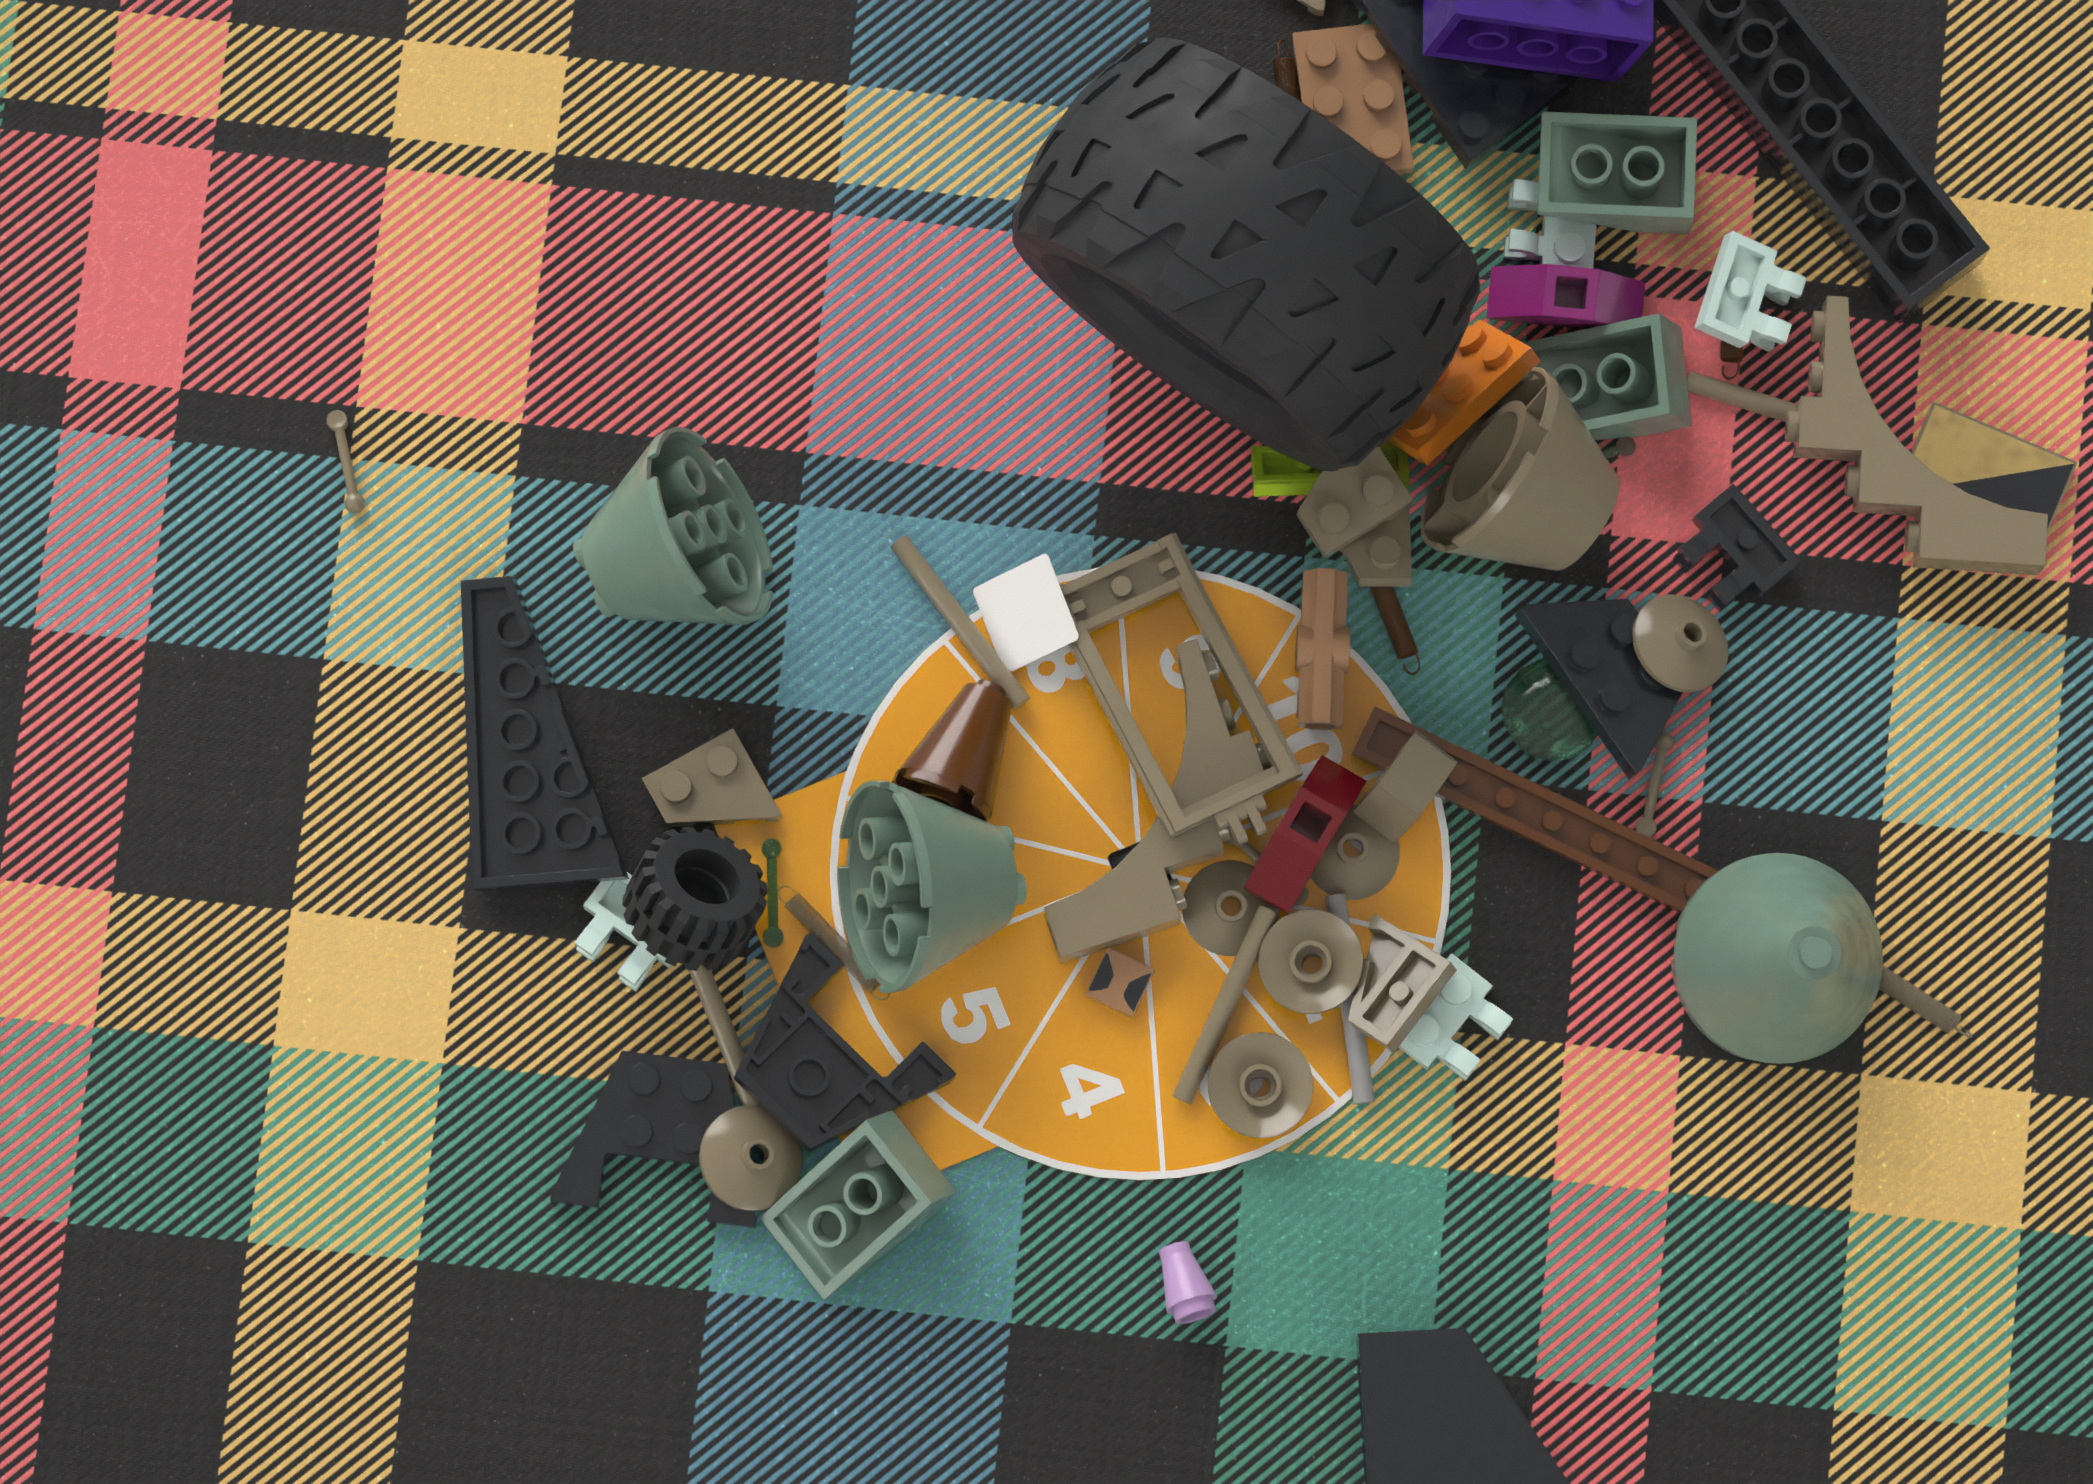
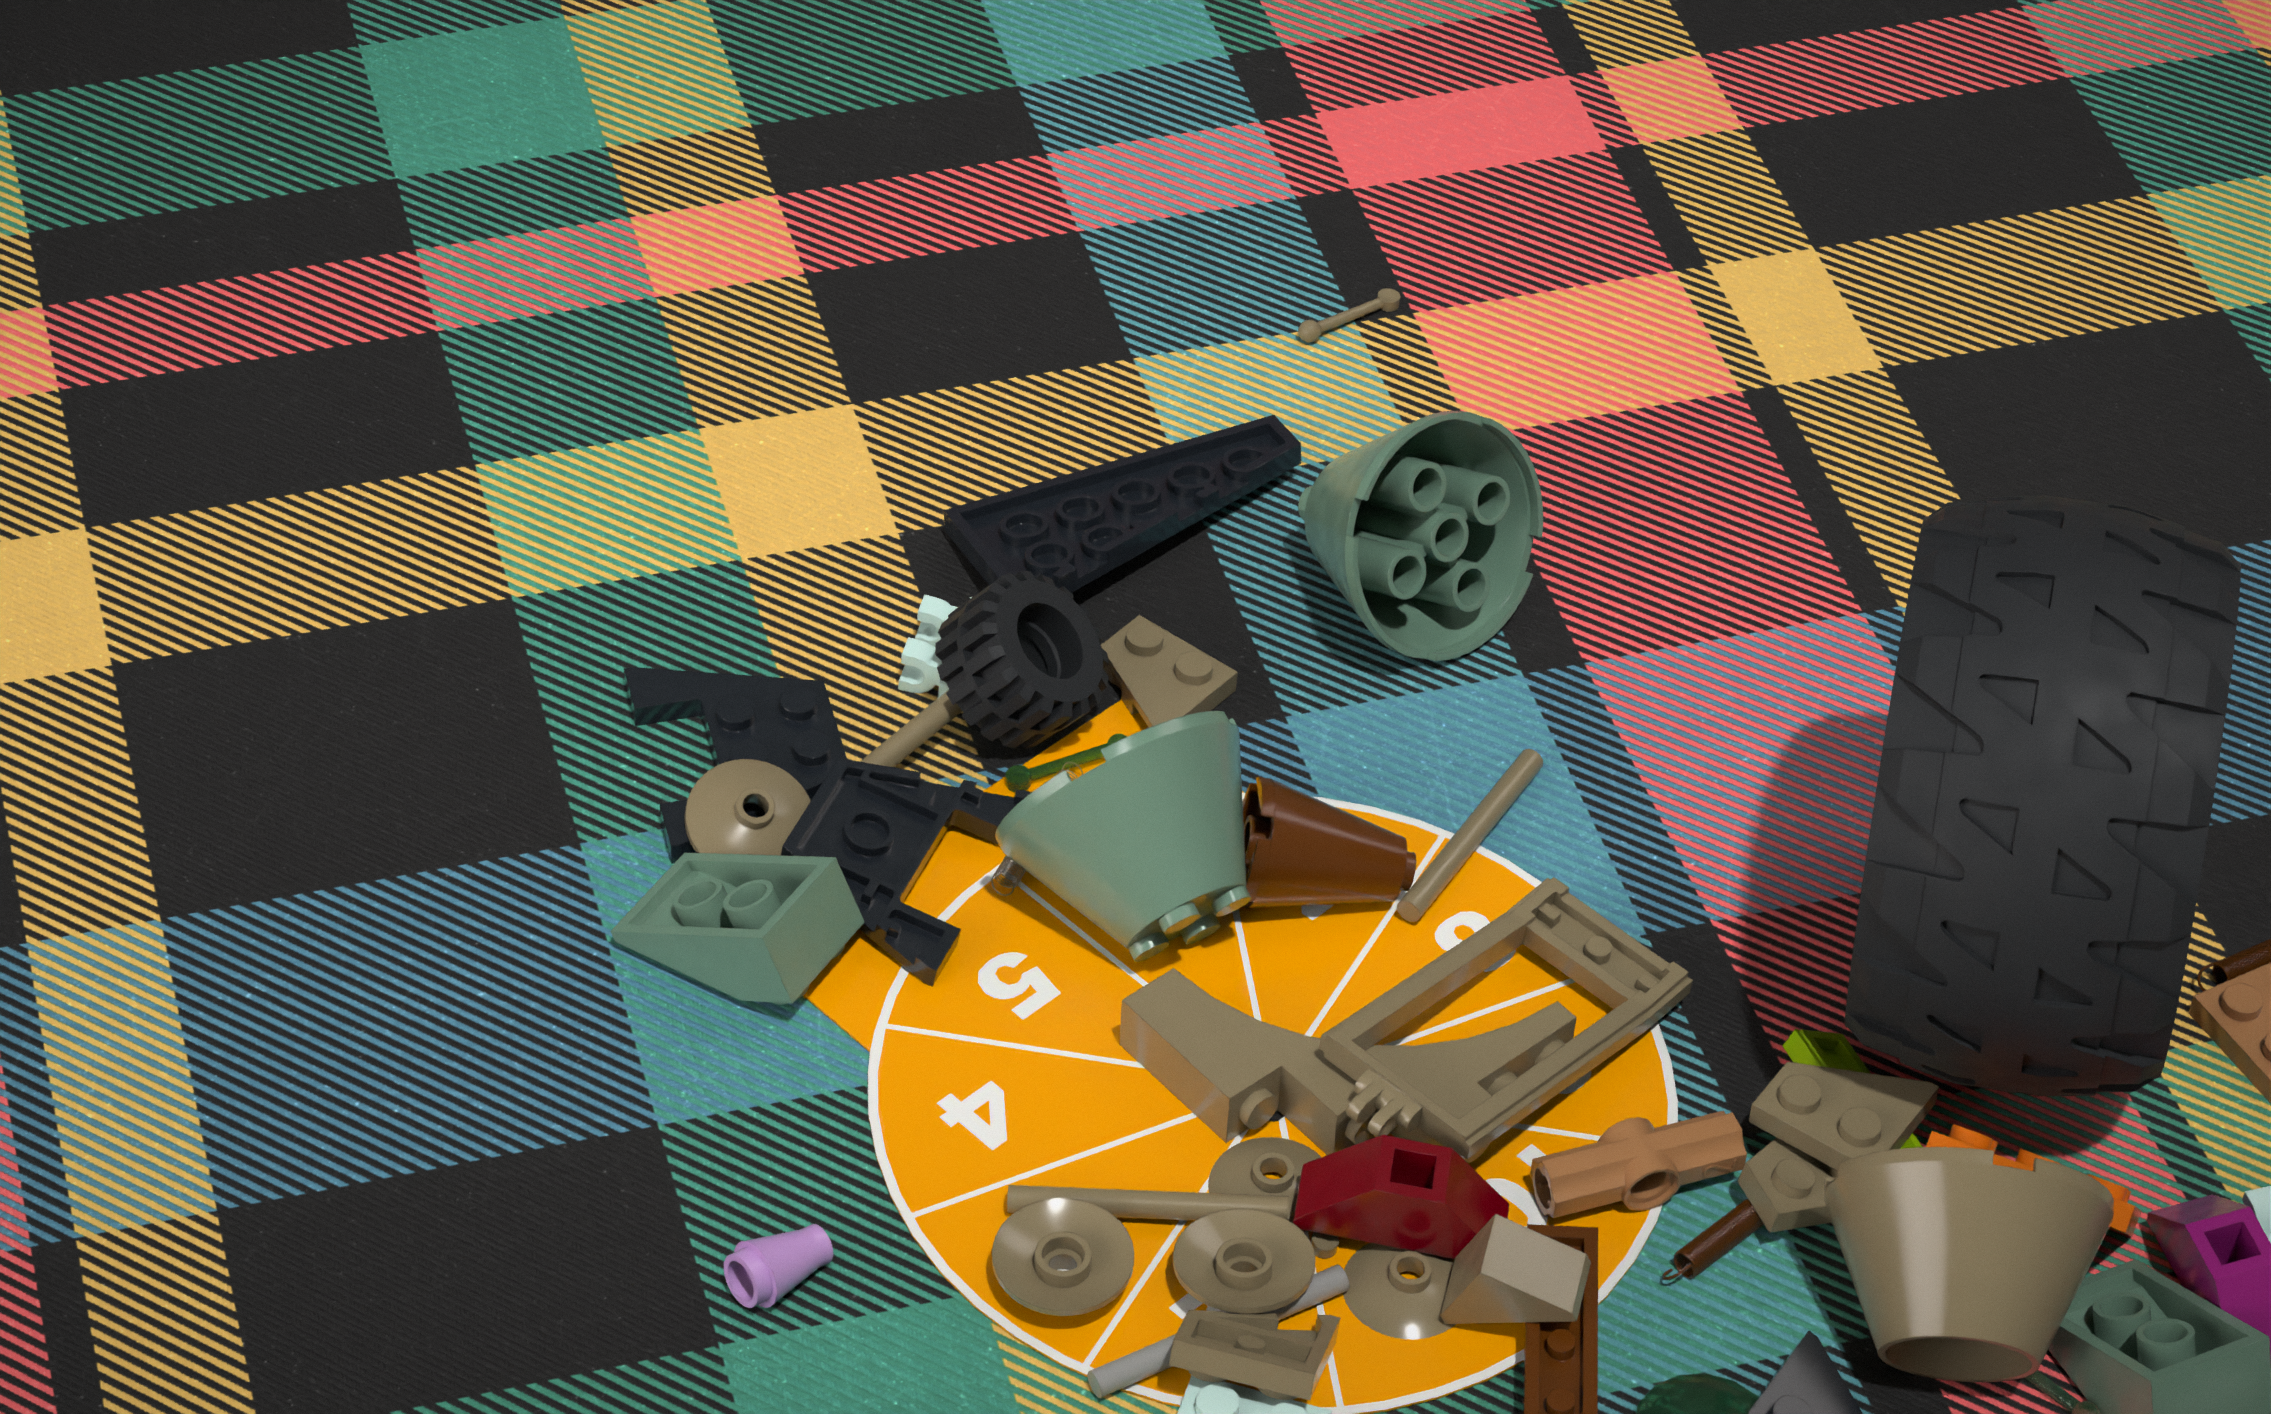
camera: 65 degrees right, 35 degrees down
(1026, 613) = (1514, 875): white sticker -> none
(1120, 982) = (1123, 1097): medium nougat tile -> none

